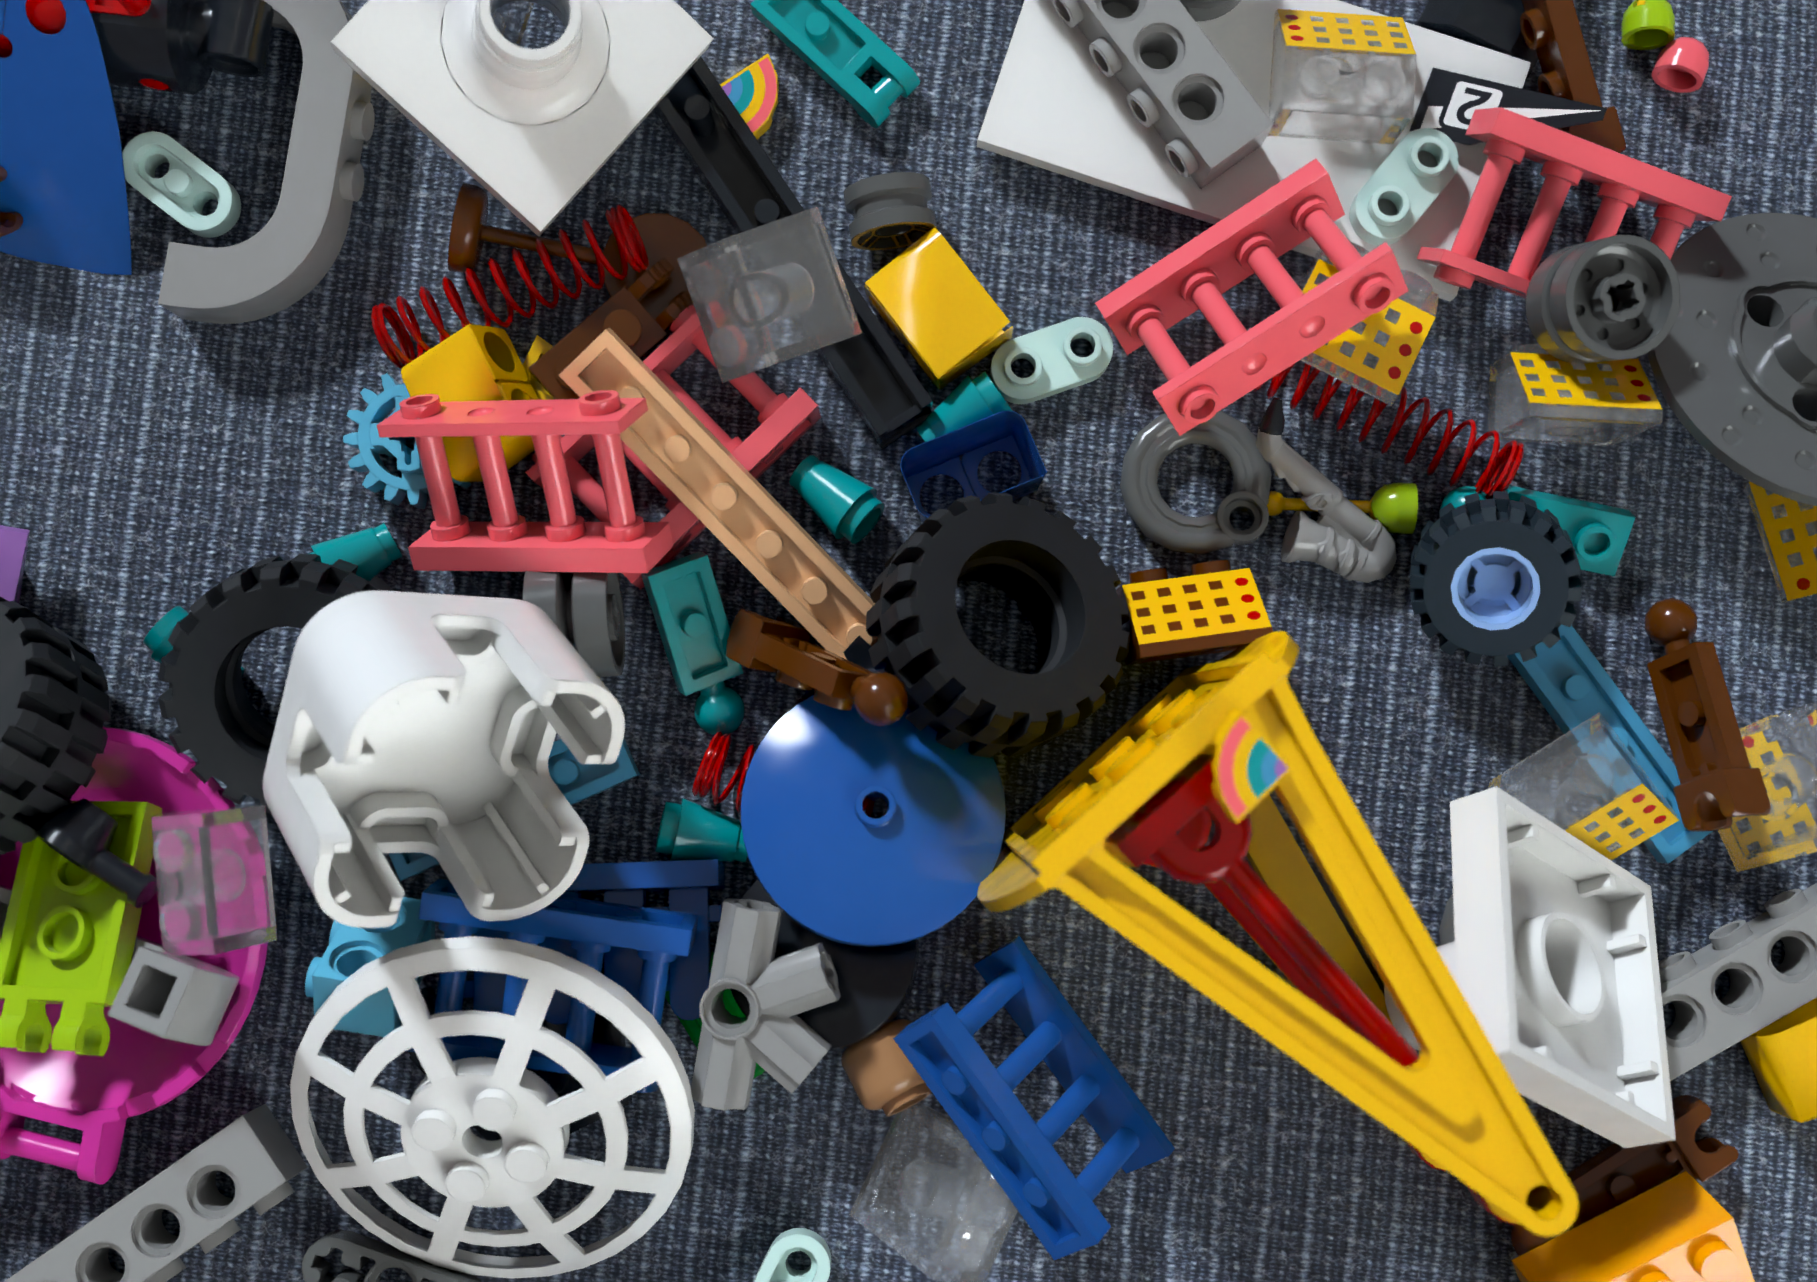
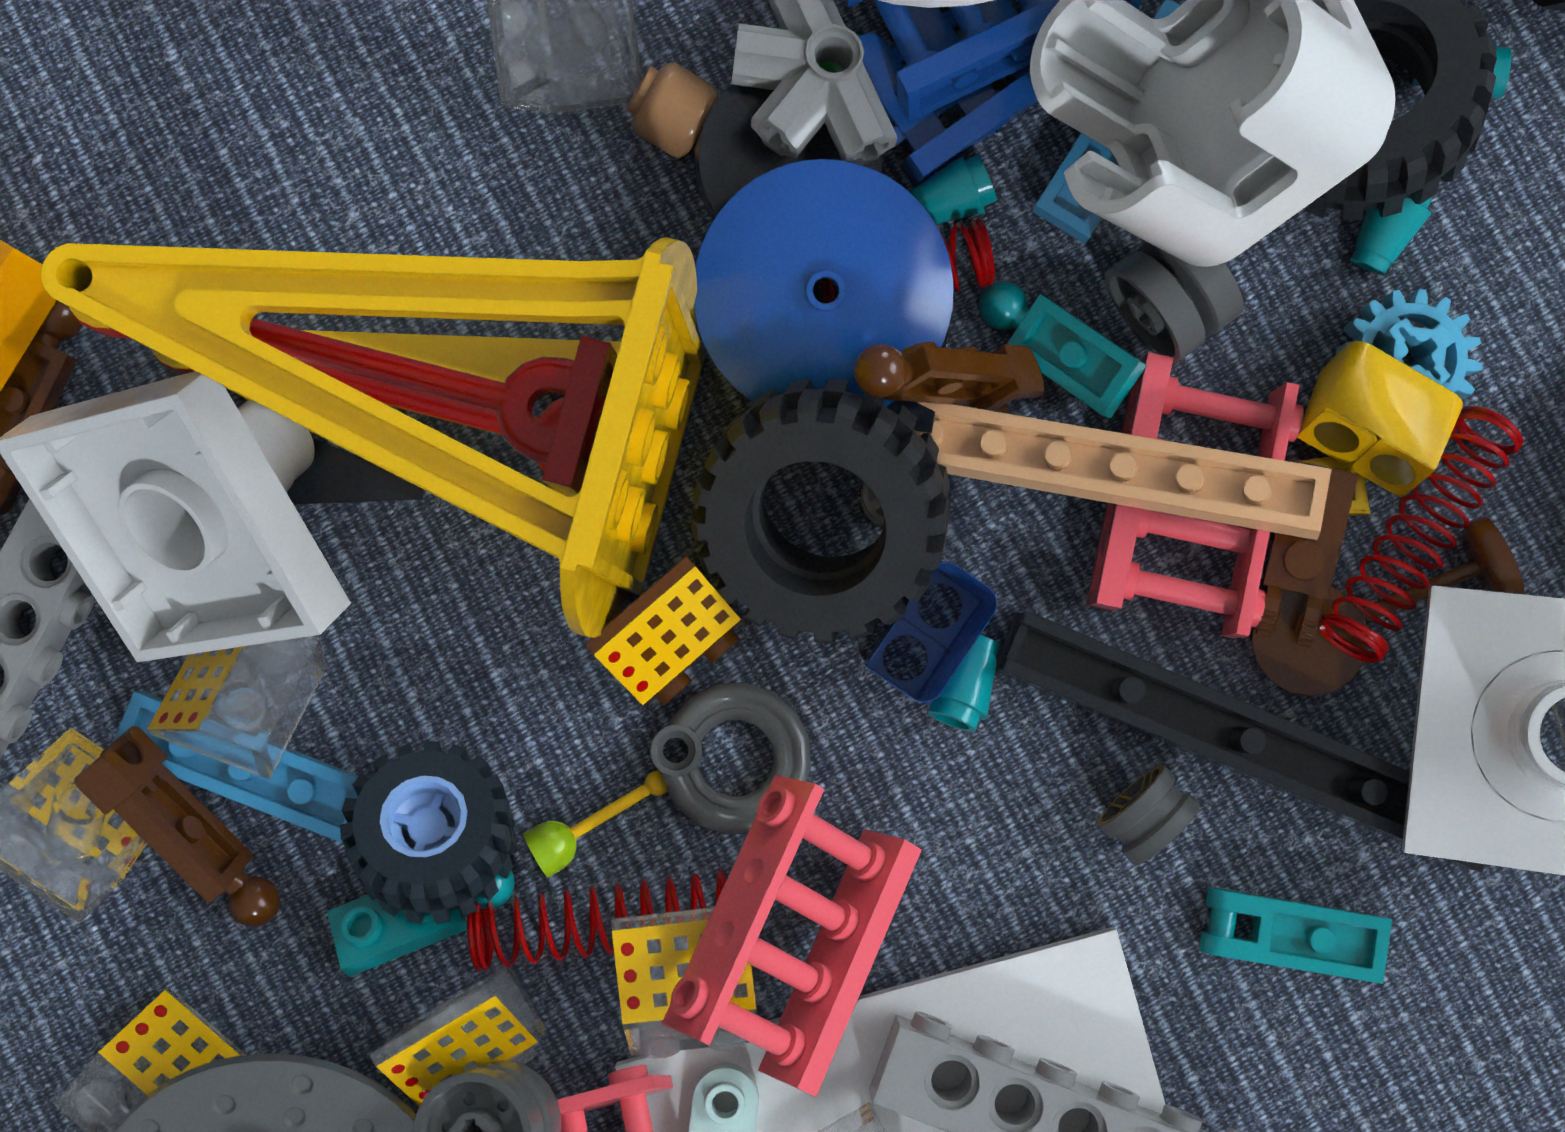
camera: 145 degrees right, 0 degrees up
(509, 541) = (1278, 318): coral fence -> none
(755, 94) = (1332, 842): tile -> none
(769, 294) = (1201, 662): clear slope -> none
(838, 499) = (1024, 541): teal cone -> none
(937, 308) = (1051, 756): yellow piece -> none
(997, 1123) = (554, 101): blue fence -> none
(1053, 360) = (921, 778): light aqua plate -> none
(1244, 766) = (547, 458): tile -> none
(1343, 535) = (580, 792): light grey piece -> none

